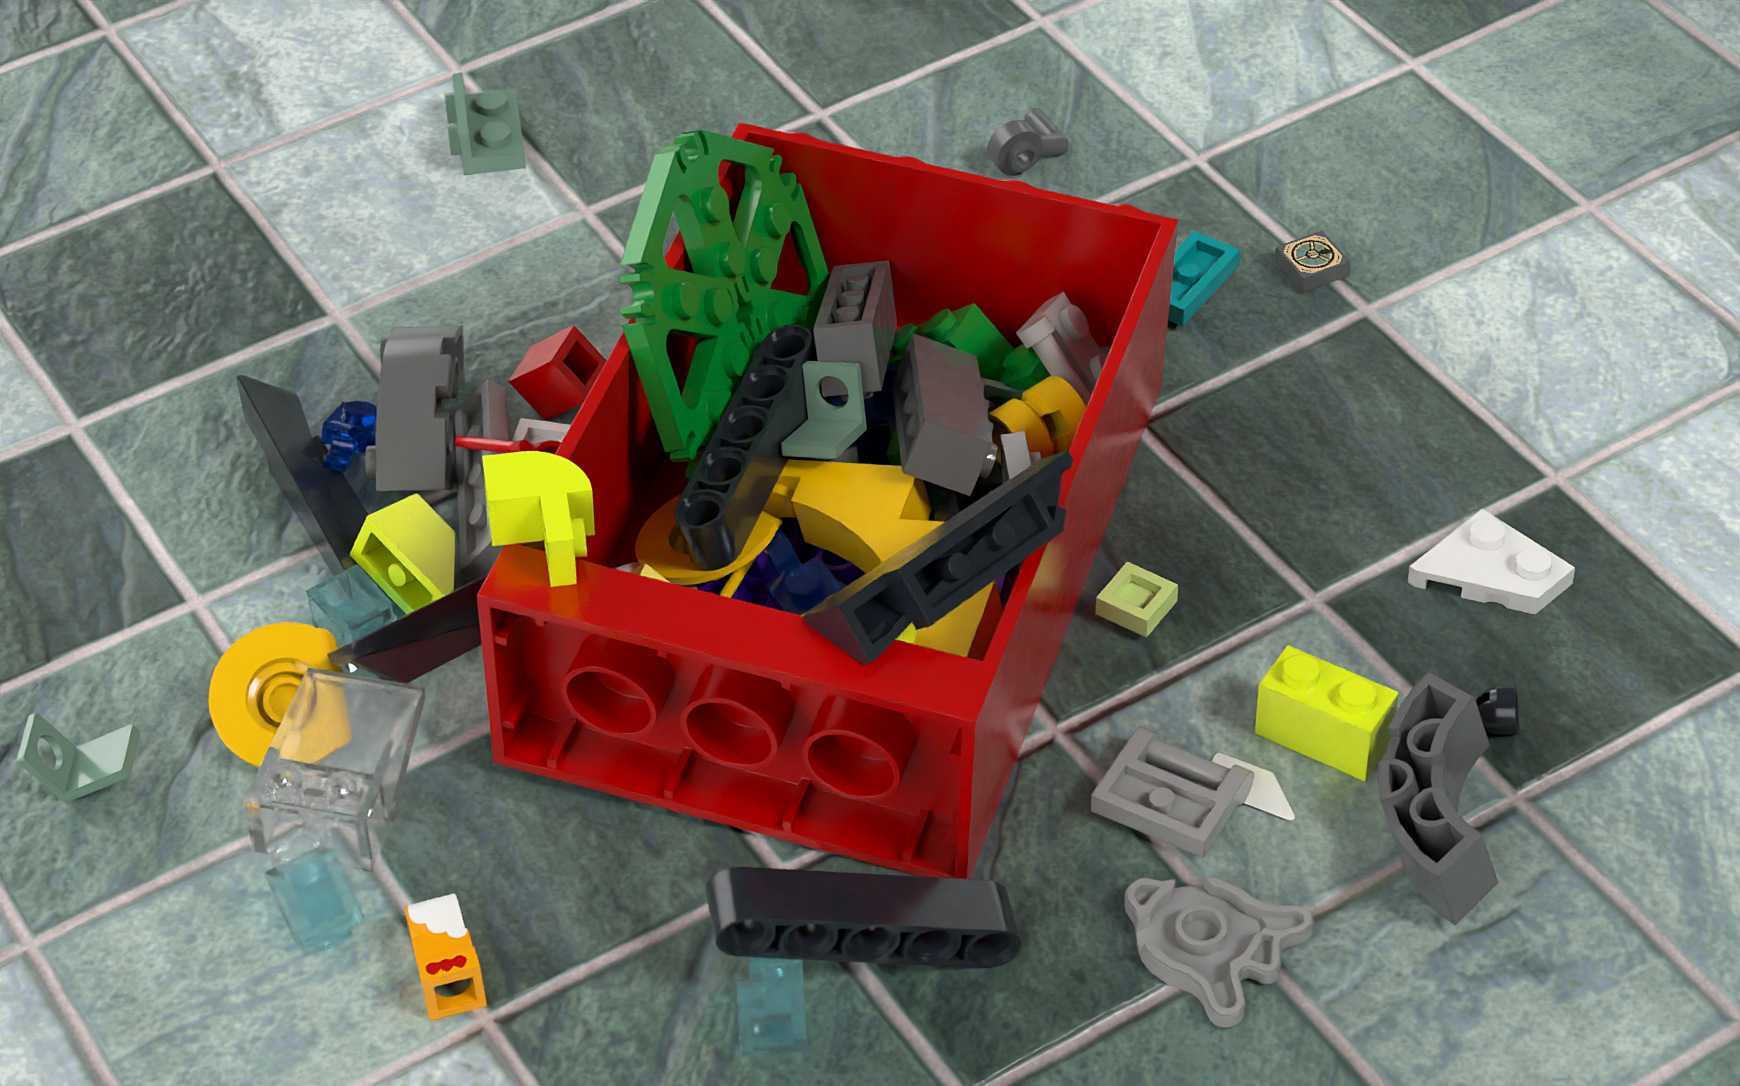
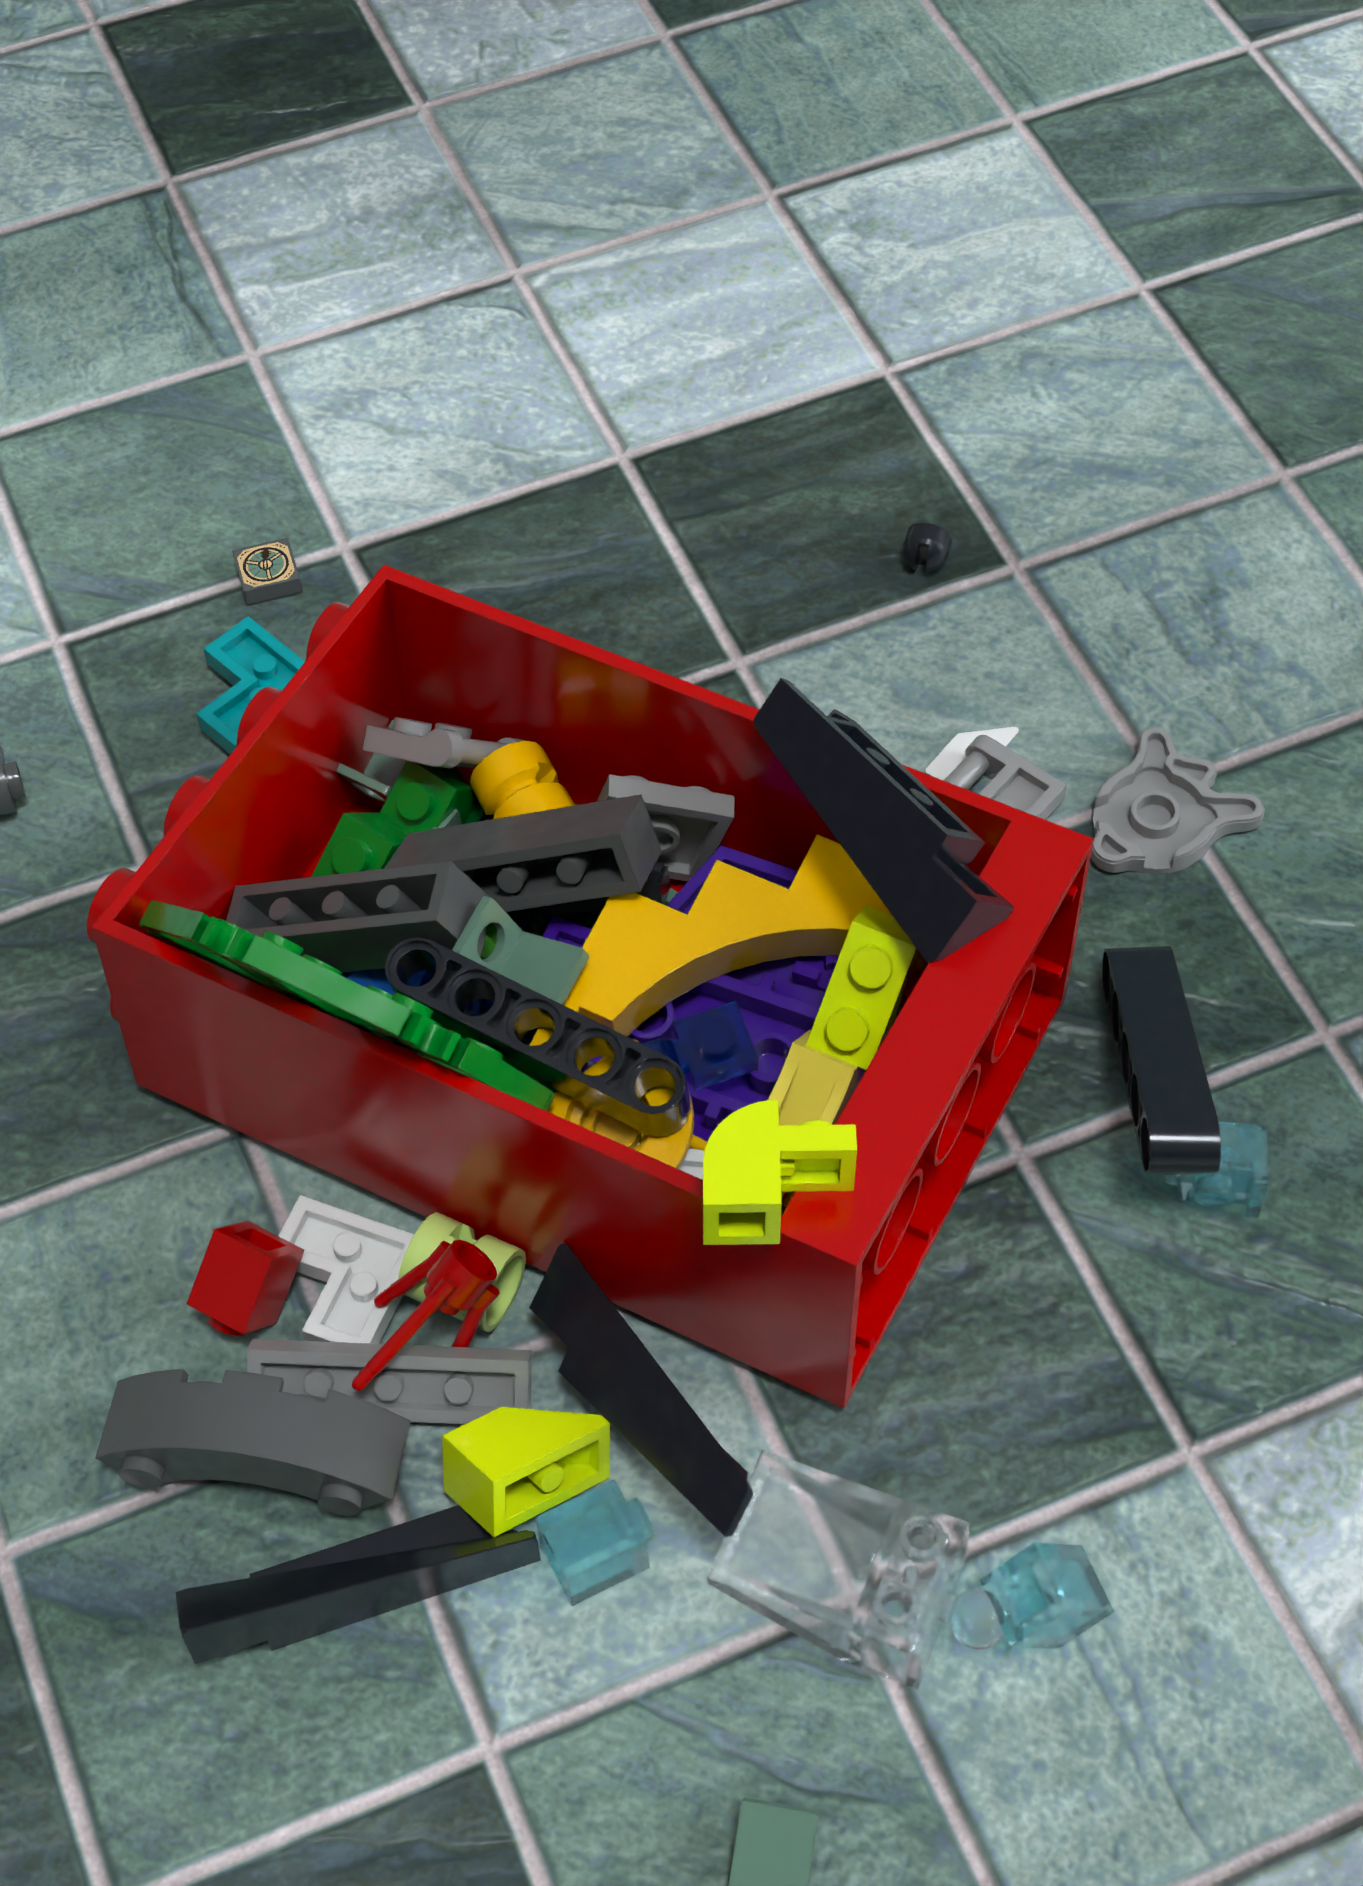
camera: 80 degrees left, 10 degrees up
(259, 681) = (709, 1640): yellow hat -> none
(348, 432) = (262, 1522): clear blue plate -> none
(444, 956) = (1123, 1475): light orange leg -> none
(1325, 712) = (919, 665): neon yellow brick -> none
(1420, 781) = (1043, 617): dark grey brick -> none
(1494, 566) = (734, 519): white wing -> none

